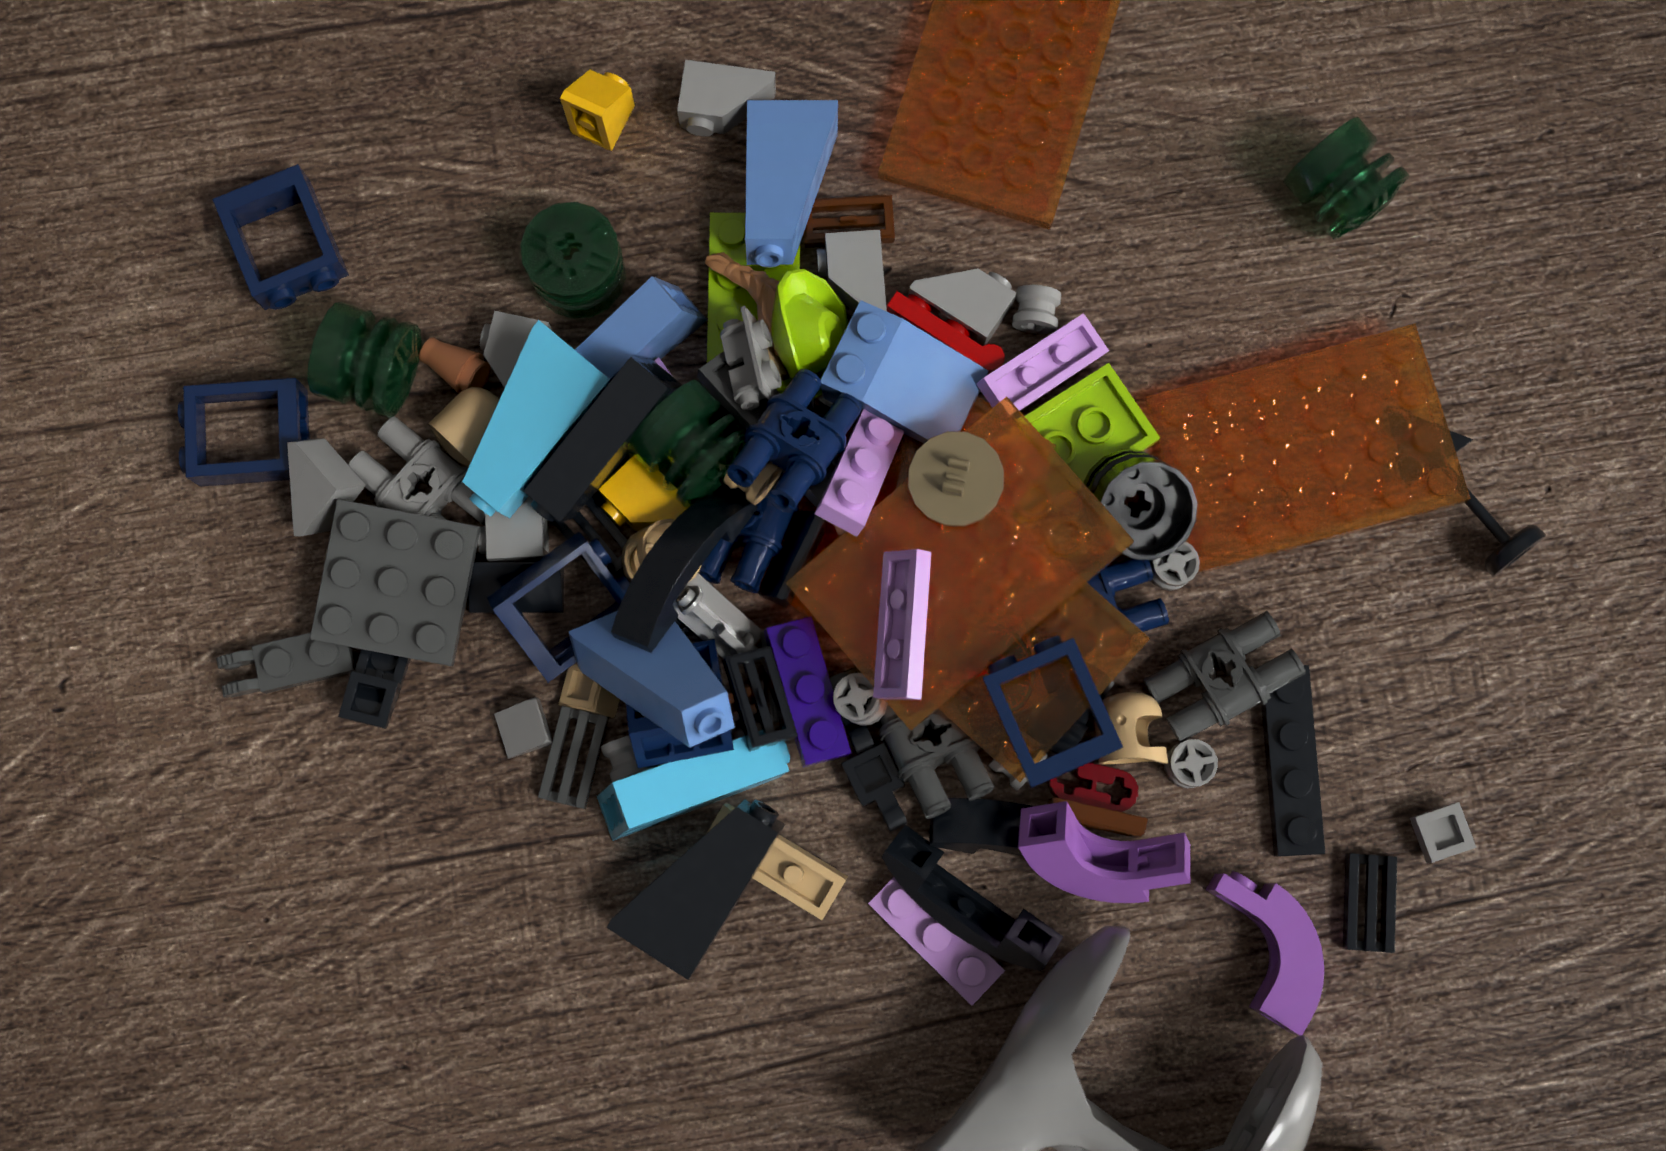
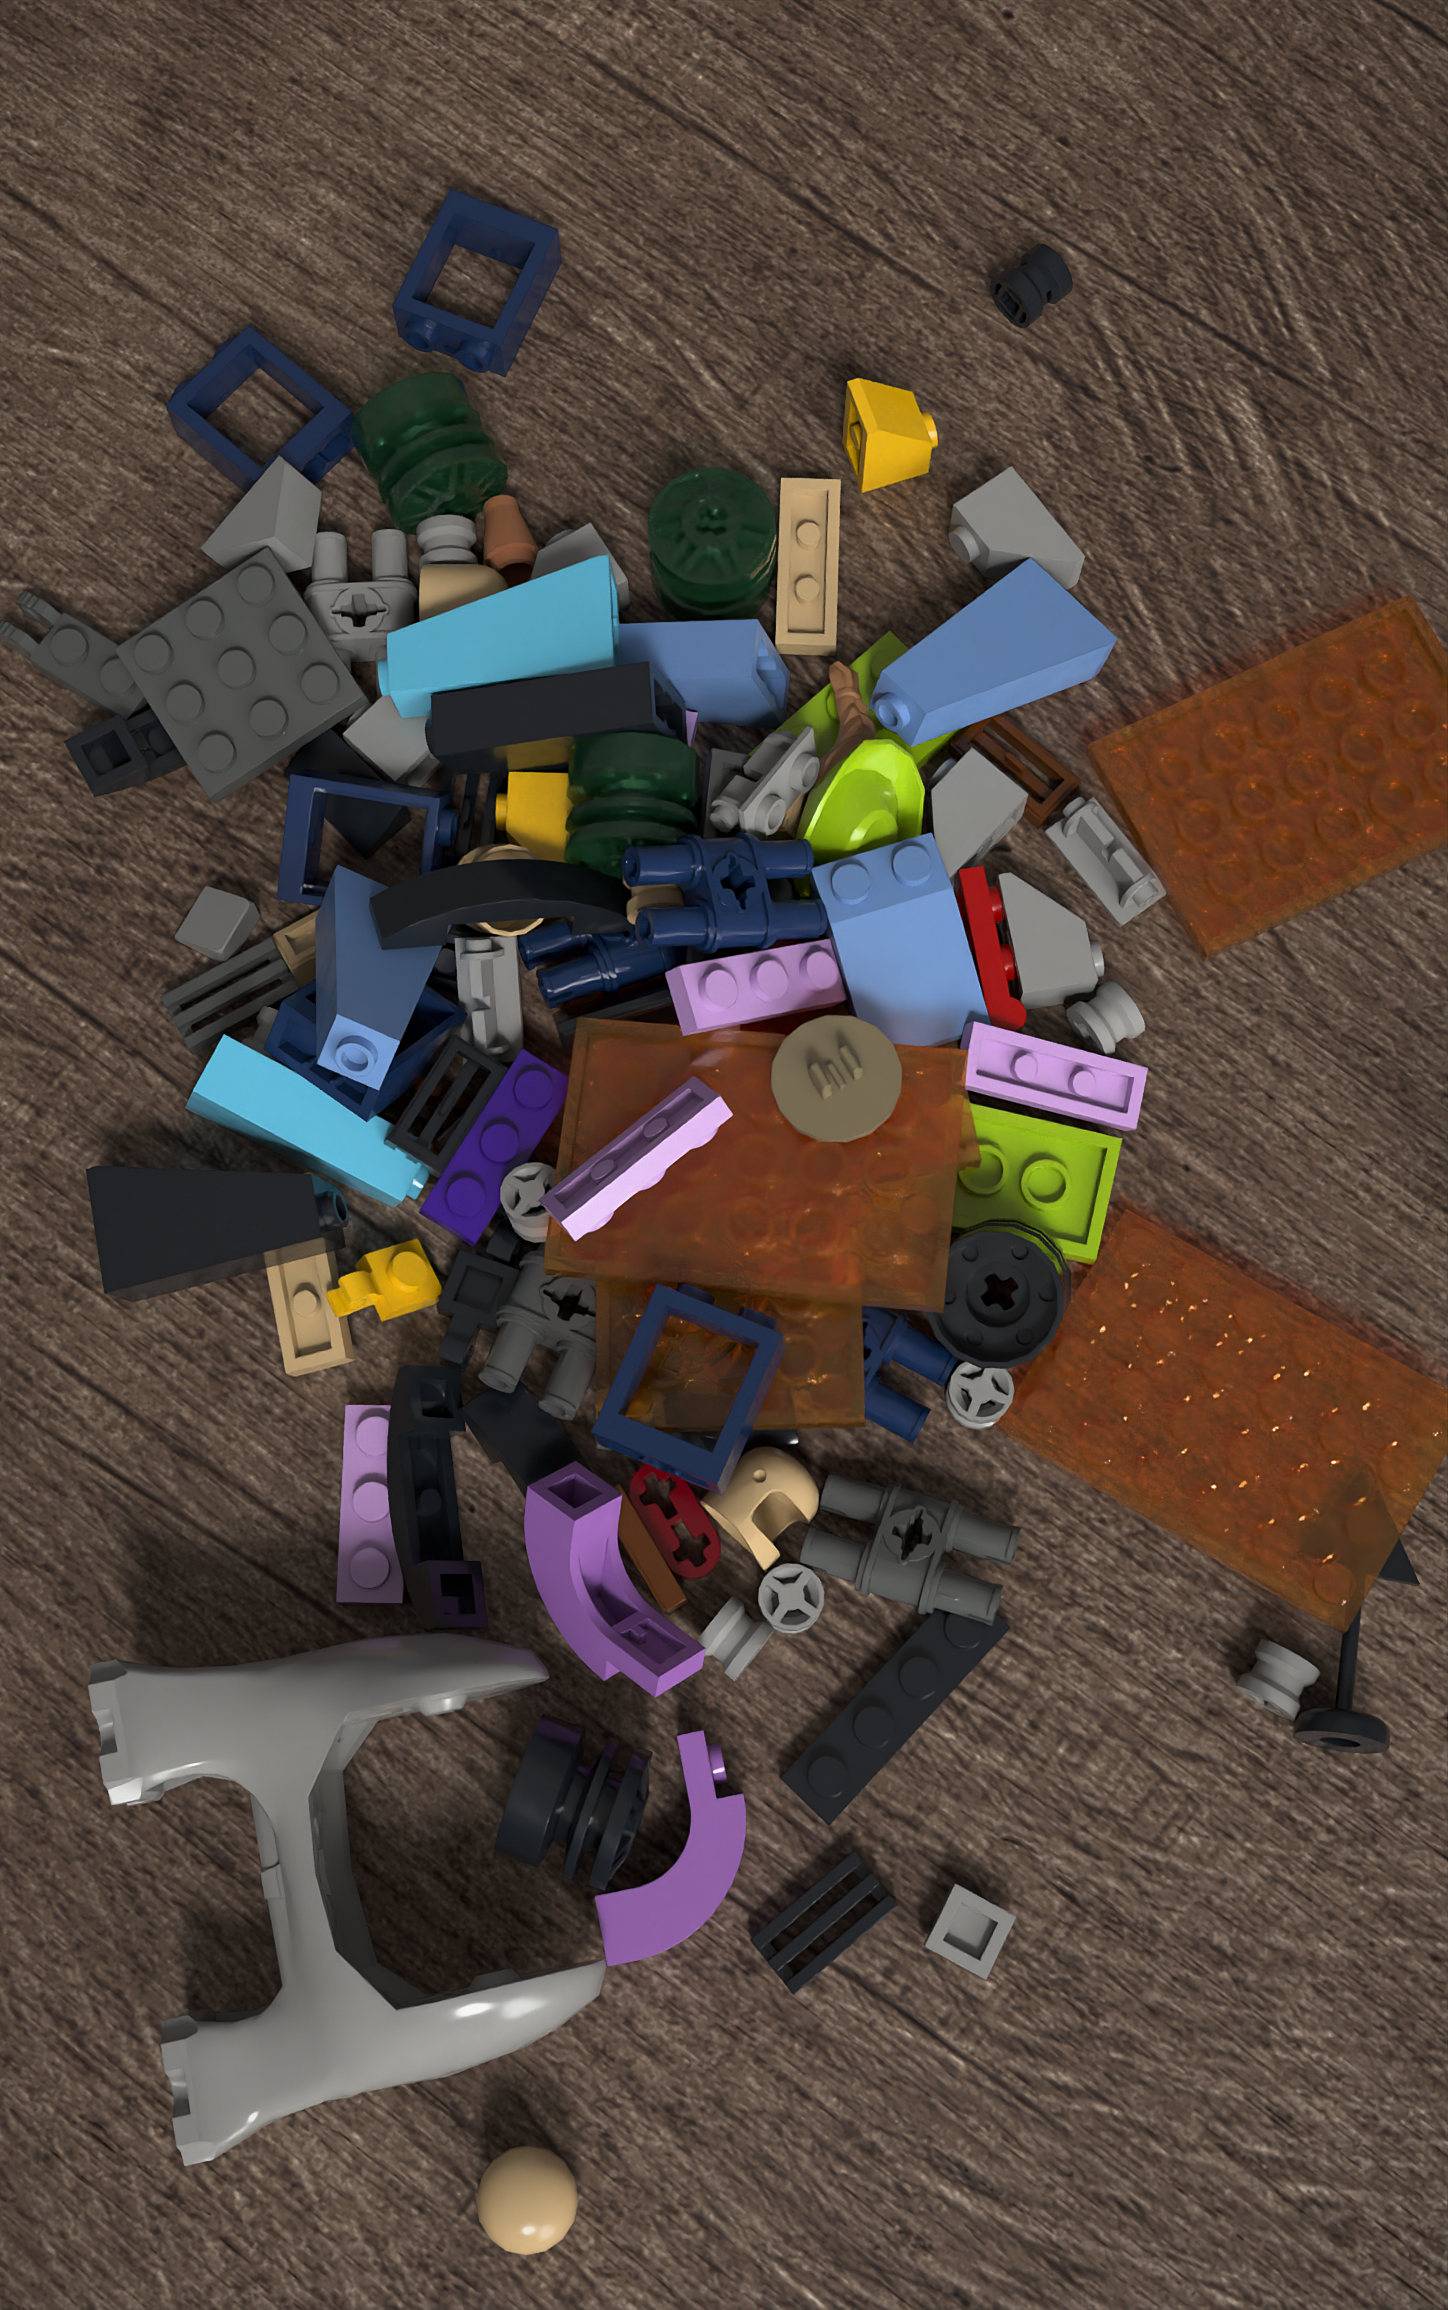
camera: 50 degrees right, 5 degrees down
(424, 400) = (446, 540): none -> light grey wheel
(632, 218) = (808, 566): none -> tan plate
(824, 817) = (390, 1279): none -> yellow plate
(948, 225) = (1105, 860): none -> light grey hinge
(1185, 812) = (734, 1638): none -> light grey wheel
(1207, 972) = (574, 1802): none -> black wheel
(1458, 556) = (1277, 1679): none -> light grey wheel

